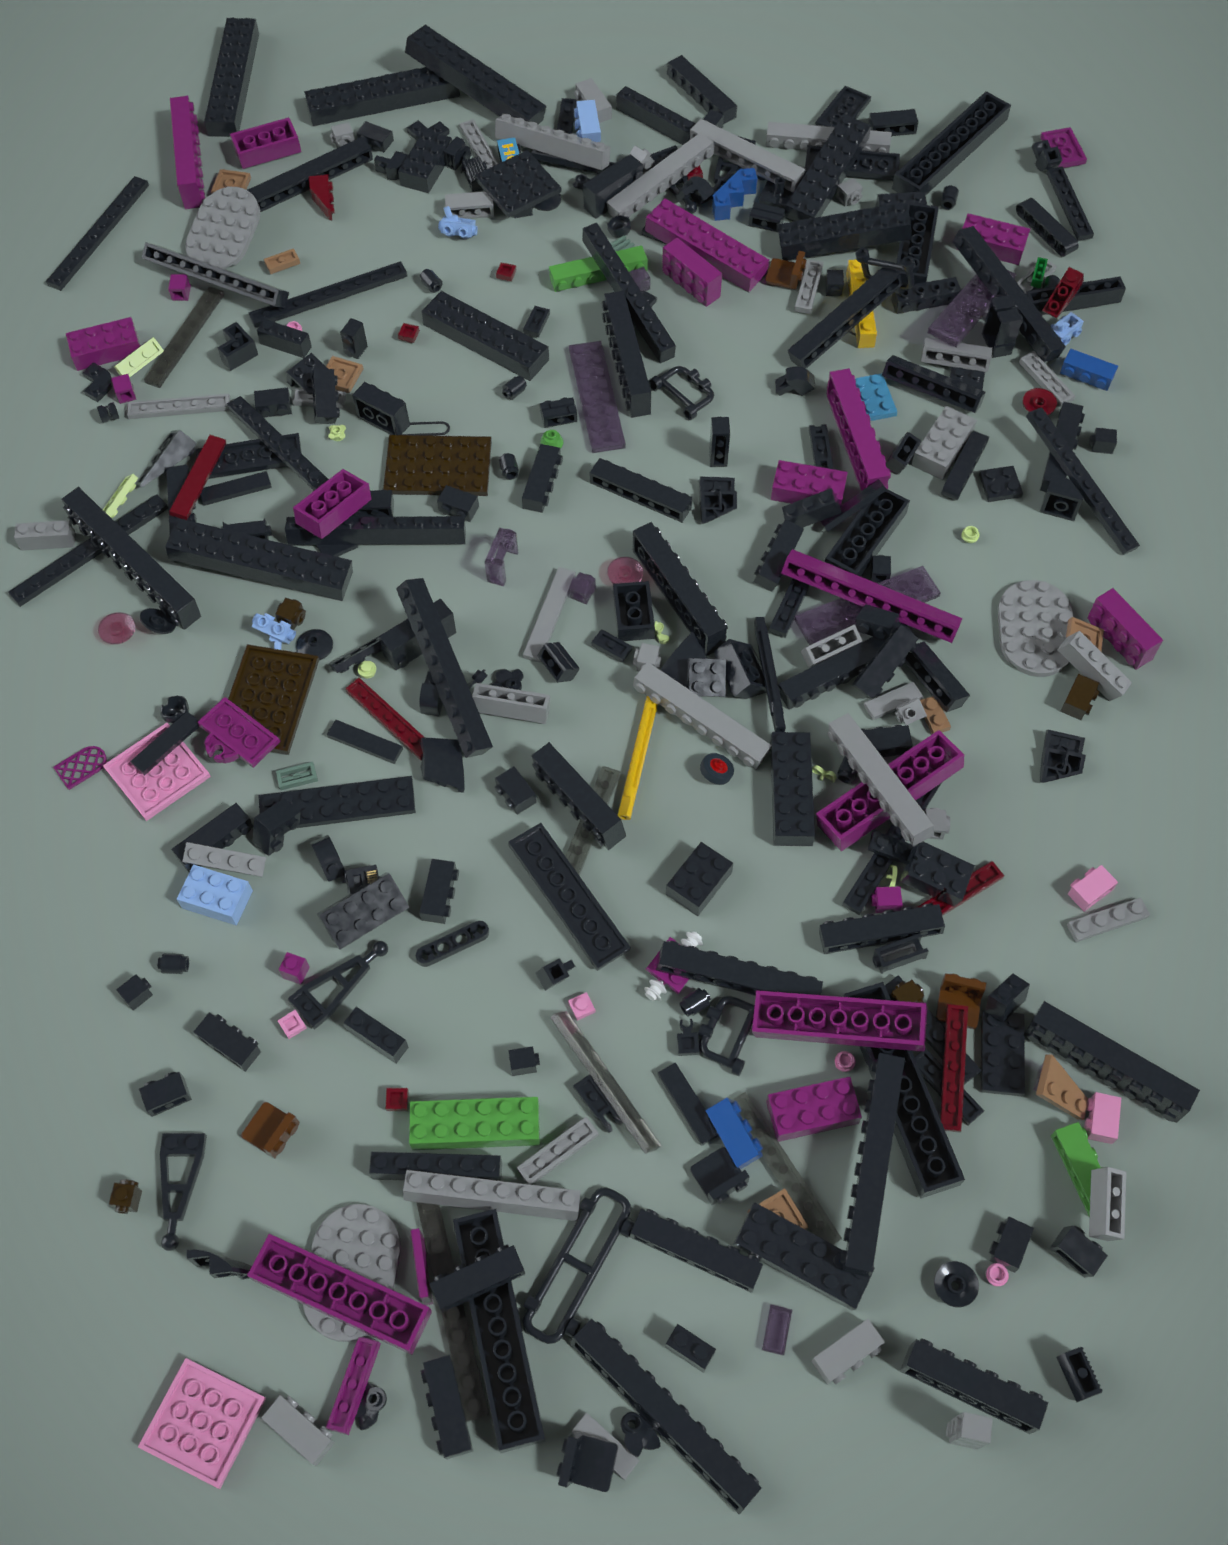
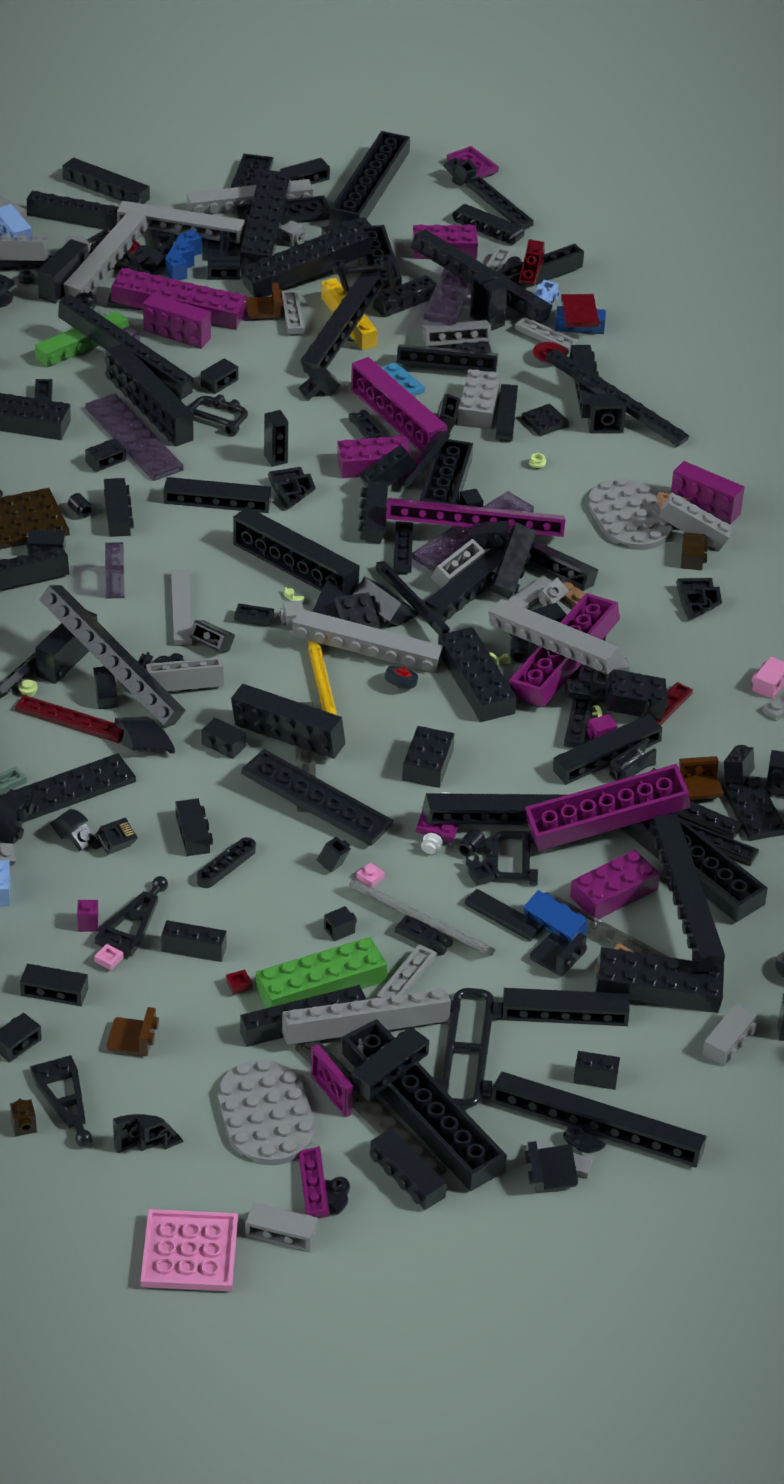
camera: 25 degrees left, 20 degrees down
(340, 1293) = (269, 1114): magenta brick -> none
(363, 910) = (131, 854): black brick -> none
(365, 741) = (56, 741): black tile -> none
(514, 387) = (50, 445): black brick -> none
(552, 438) = (108, 473): bright green cone -> none
(582, 587) = (203, 578): clear purple brick -> none
(625, 566) = (237, 557): clear pink dish -> none
(633, 611) = (262, 581): black brick -> none
(705, 346) = (219, 376): none -> black brick
(777, 1330) = (663, 1041): clear purple tile -> none
(834, 282) = (315, 304): black brick -> none
(844, 1061) = (623, 847): bright pink plate -> none
(949, 197) = (387, 218): black brick -> none
(954, 1067) = (717, 819): dark red tile -> none
(1039, 272) = (500, 257): green piece -> none
(1090, 361) = (580, 310): none -> dark red tile
(1103, 440) = (620, 368): black brick -> none

